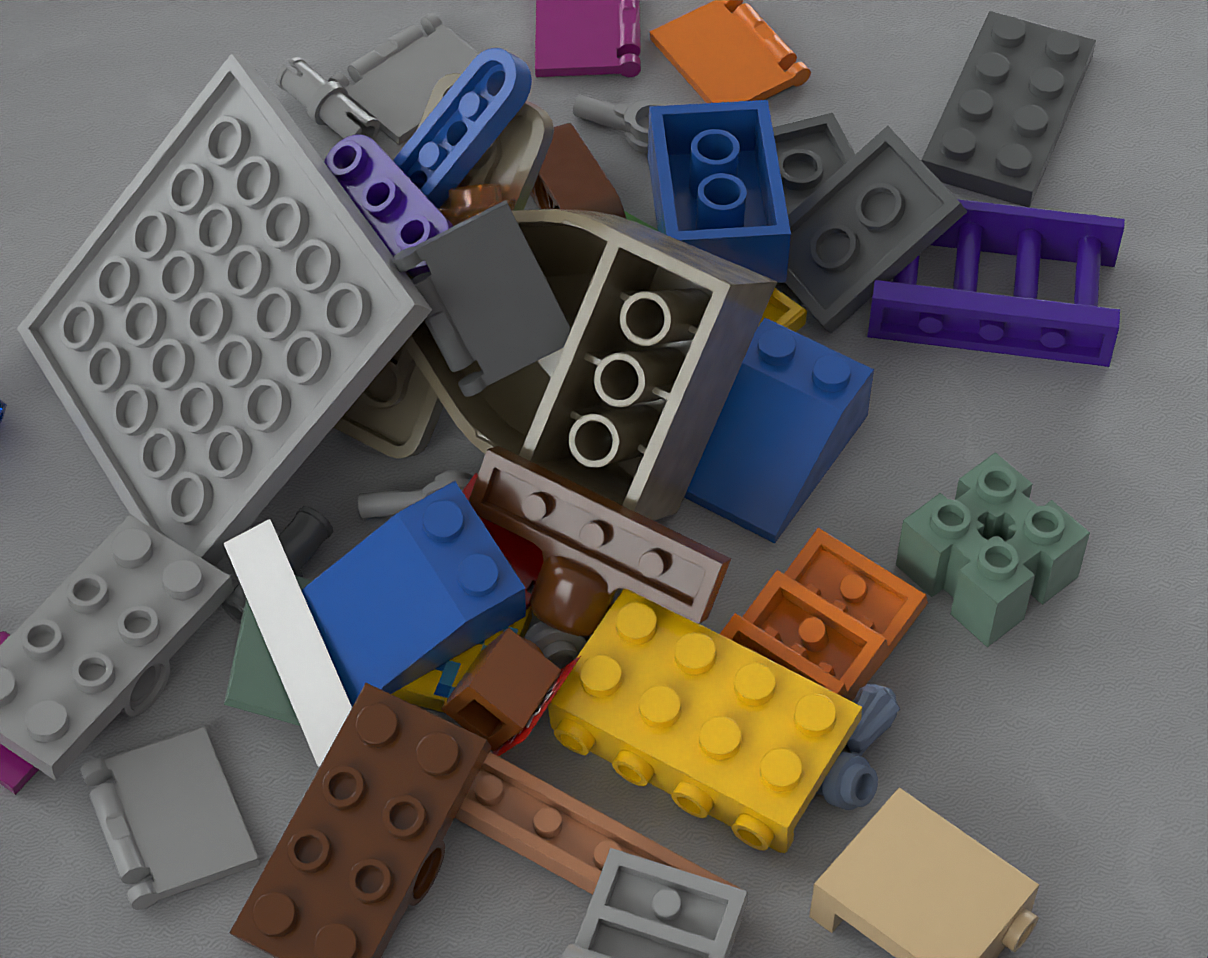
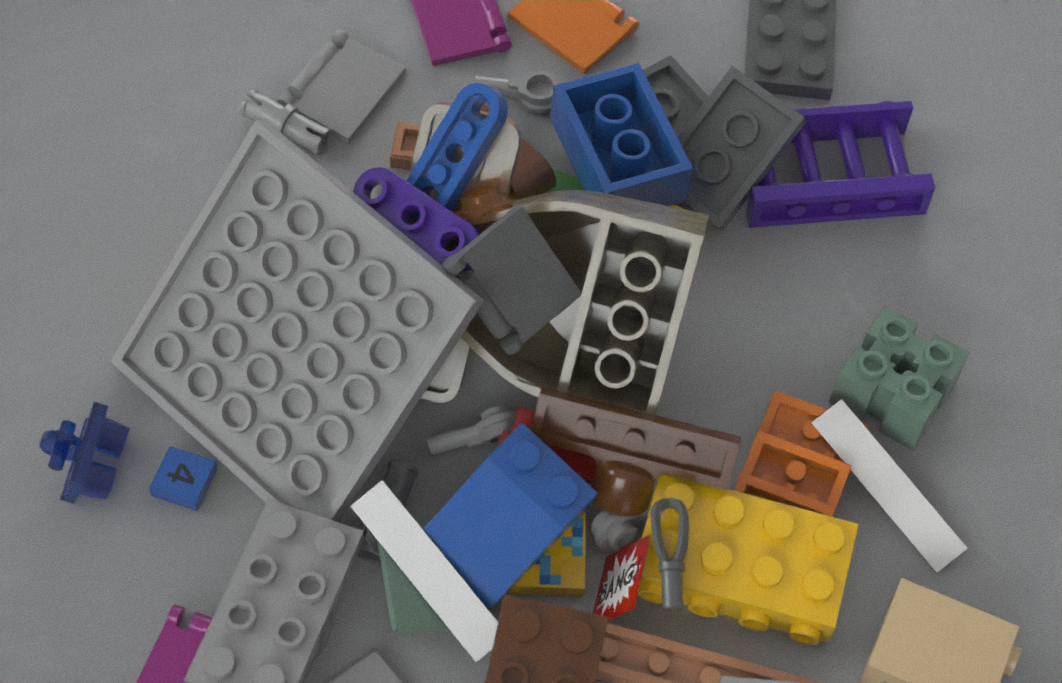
camera: 20 degrees left, 5 degrees up
(51, 477) = (183, 478): none -> blue tile
(501, 688) = (594, 571): dark orange brick -> none
(591, 702) = (671, 569): none -> dark grey piece
(779, 429) = (720, 322): blue slope -> none
(851, 779) = (861, 576): sand blue piece -> none
(934, 679) = (889, 486): none -> white sticker

